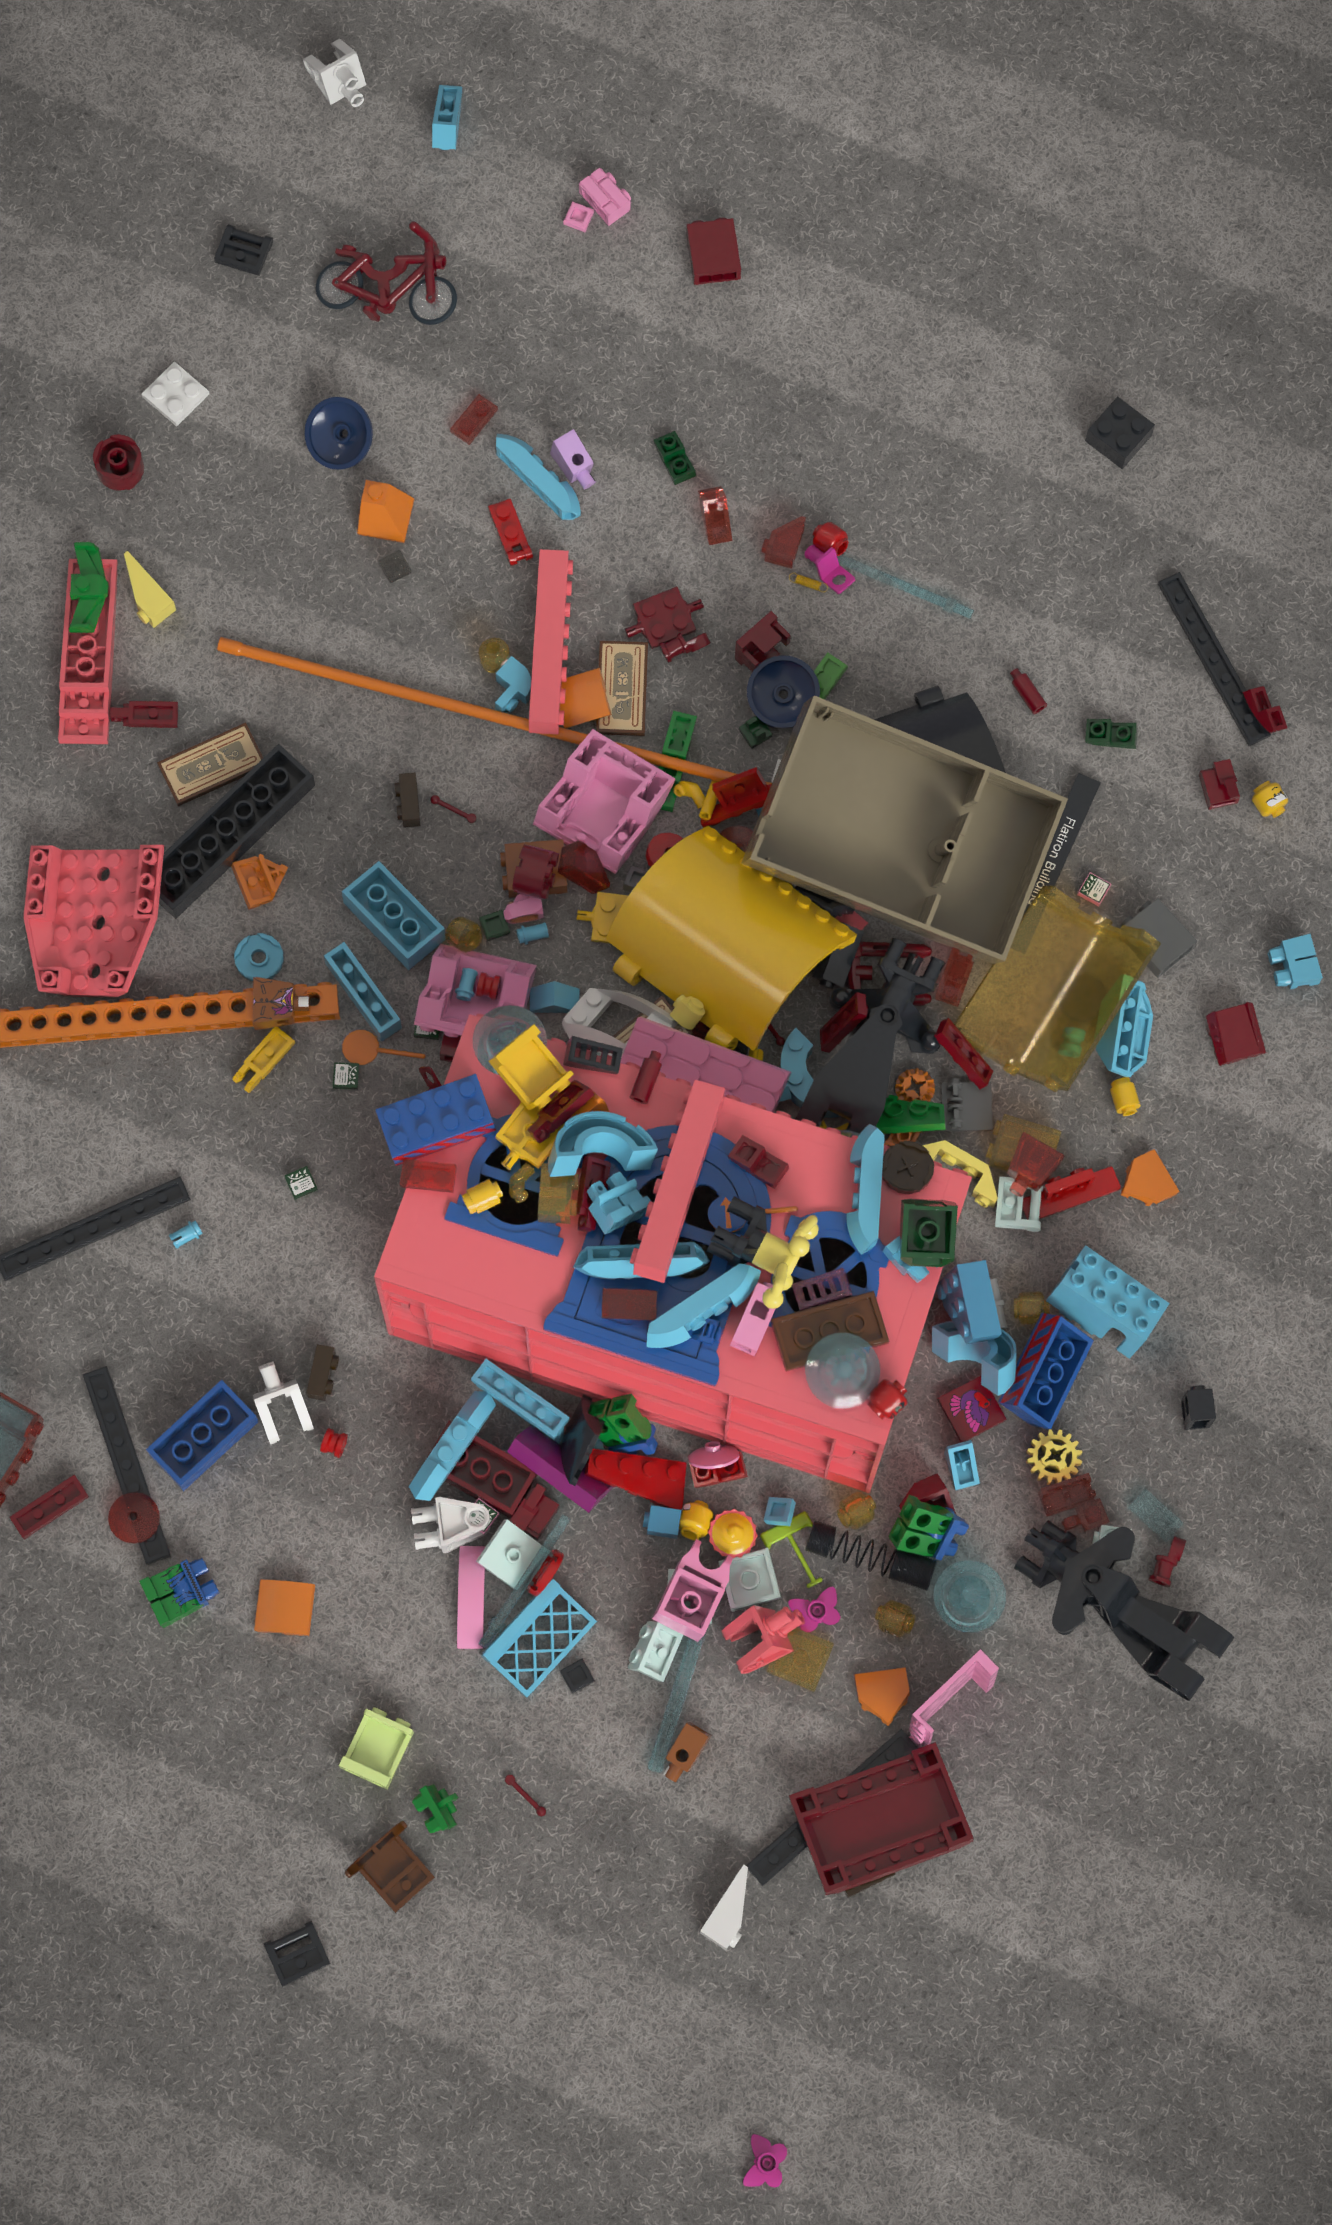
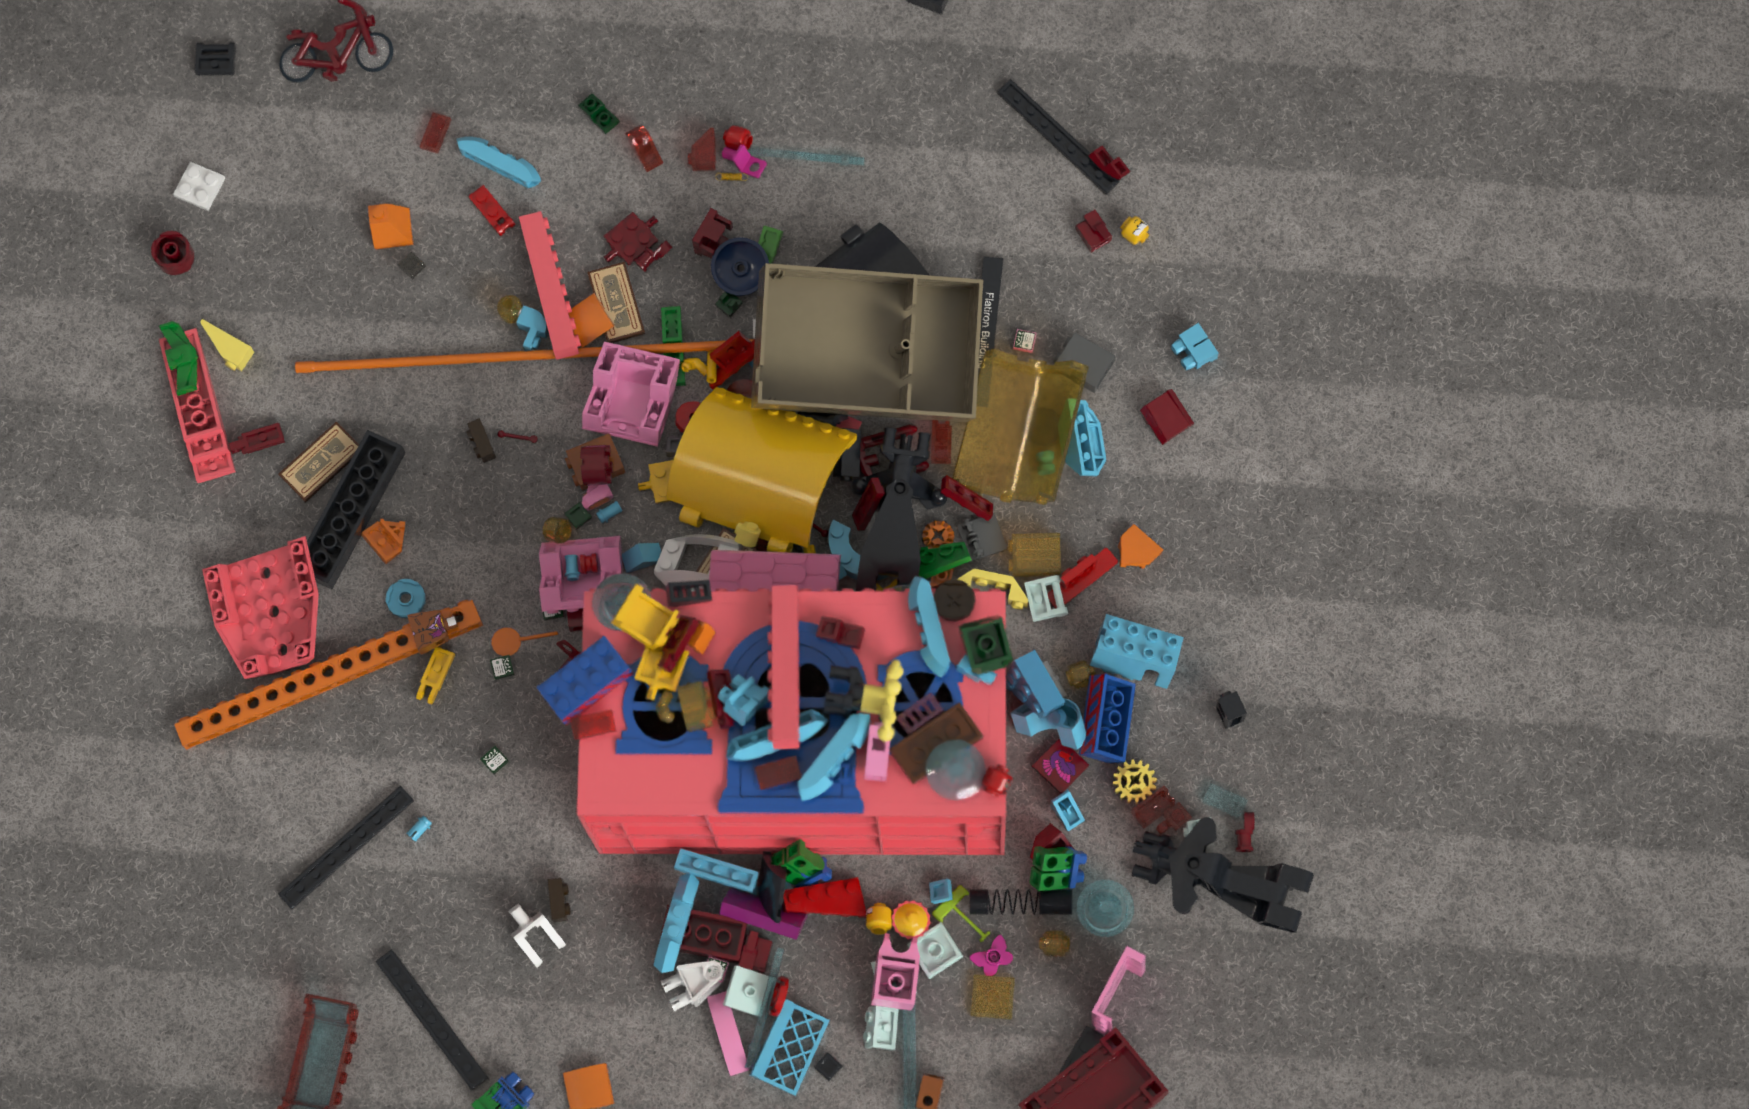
camera: 10 degrees left, 0 degrees up
(49, 1507) = (383, 1071): dark red plate -> none
(139, 1529) = (455, 1067): clear red dish -> none
(202, 1435) = (482, 977): blue brick -> none
(325, 433) = (324, 178): dark blue dish -> none
(334, 1442) = (585, 950): red wheel -> none
(362, 991) = (494, 598): medium azure brick -> none
(393, 915) = (498, 532): medium azure brick -> none
(482, 1196) = (639, 727): yellow brick -> none
(570, 451) = (516, 133): lavender torso -> none
(583, 867) = (631, 449): clear red slope -> none
(600, 1134) = (714, 650): medium azure brick -> none
(646, 1078) = (735, 596): dark red cylinder -> none
(662, 1521) = (854, 928): dark azure brick -> none
(708, 1477) = (884, 874): red slope -> none
(713, 1456) = (877, 865): bright pink dish -> none
(719, 1216) = (824, 683): blue piece -> none
(774, 1632) = (966, 982): coral piece -> none
(856, 1510) = (998, 871): clear yellow head -> none
(883, 1692) = (1063, 1002): orange slope -> none
(1028, 691) = (925, 206): dark red cylinder -> none
(1032, 1164) = (1046, 565): clear red torso -> none
(1111, 734) = (999, 219): dark green slope -> none
(1124, 1096) = (1099, 491): yellow brick -> none

